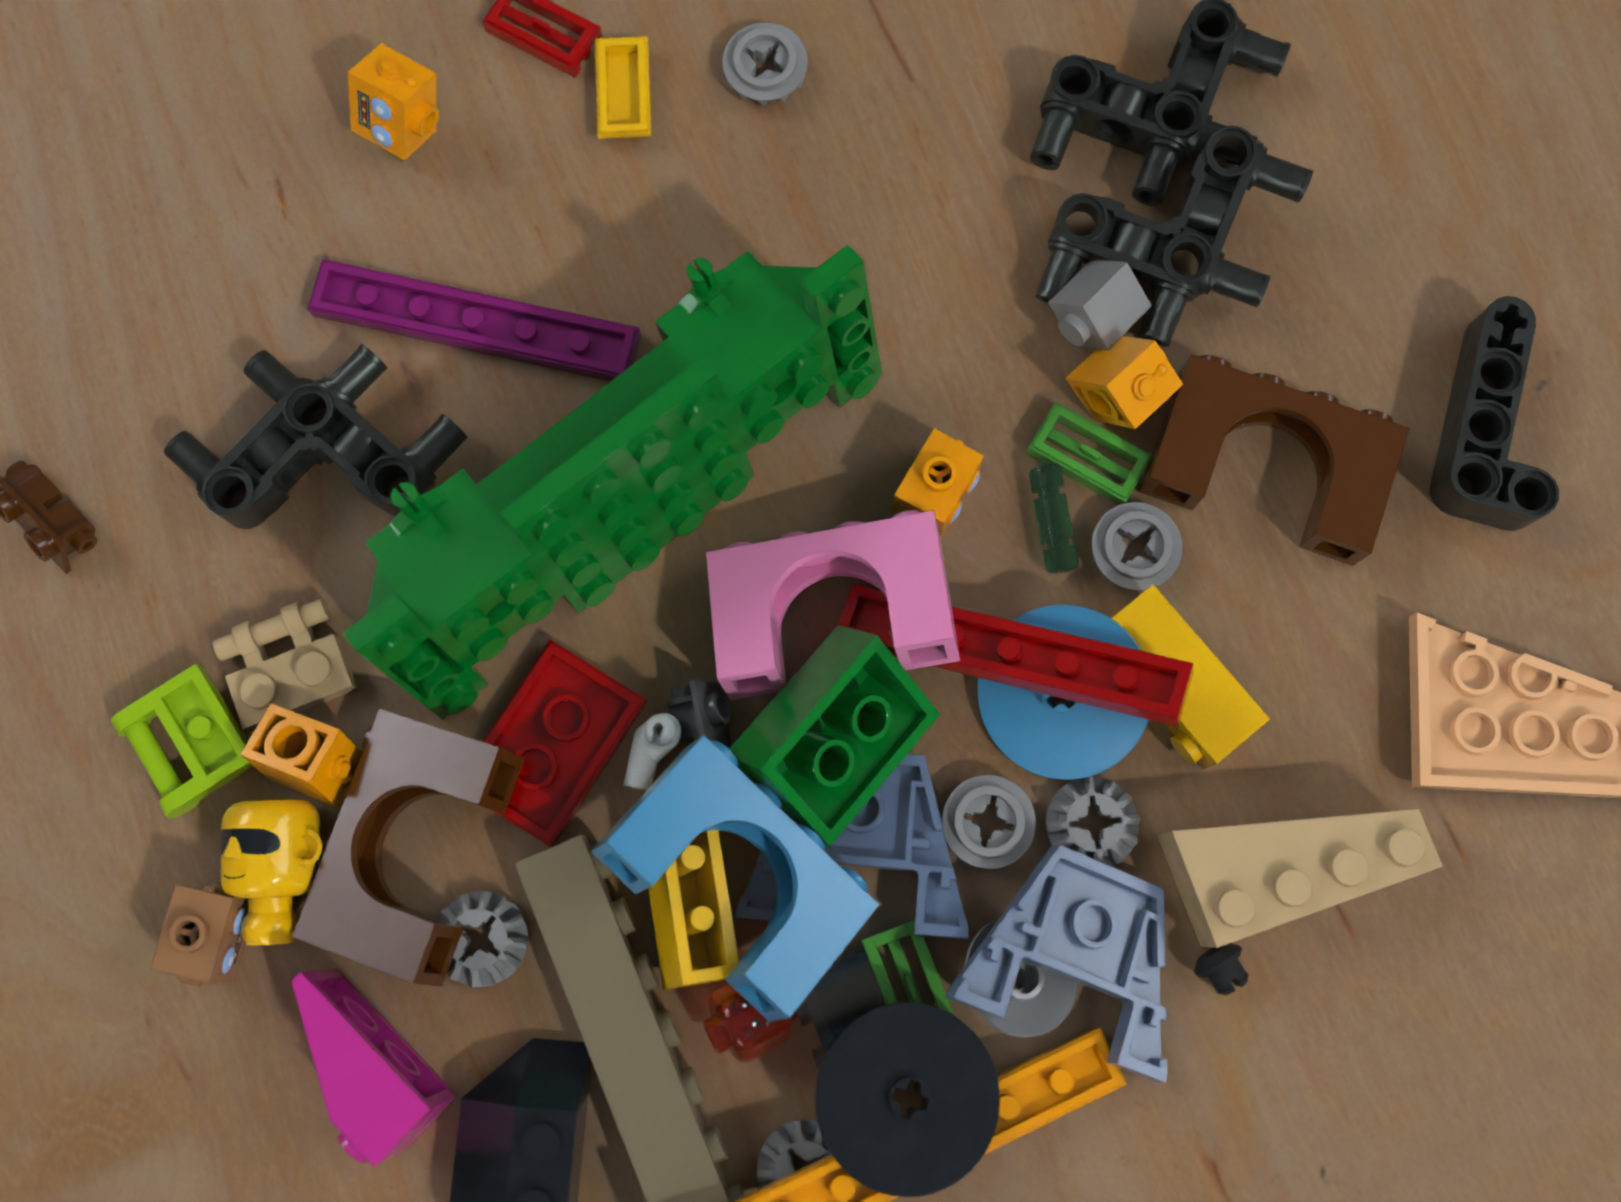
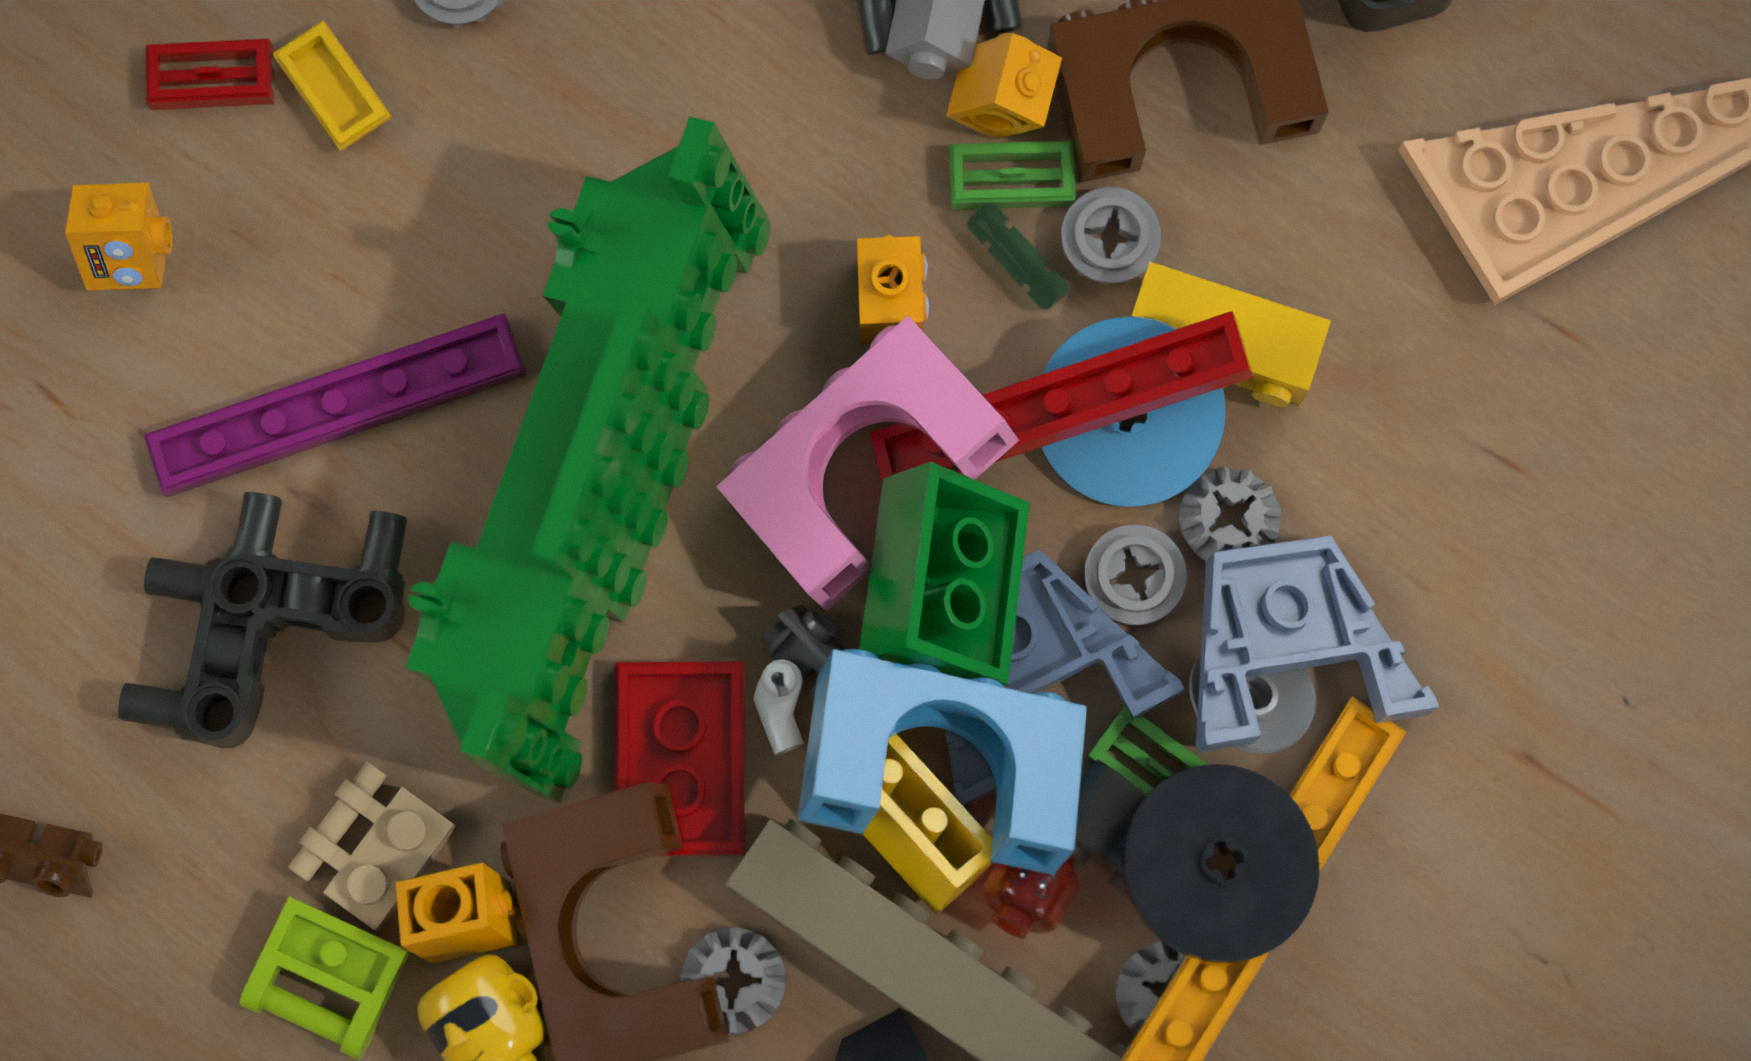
camera: 35 degrees left, 0 degrees up
(1222, 968) = (1427, 574): black piece -> none
(1280, 871) = (1419, 456): tan wedge -> none

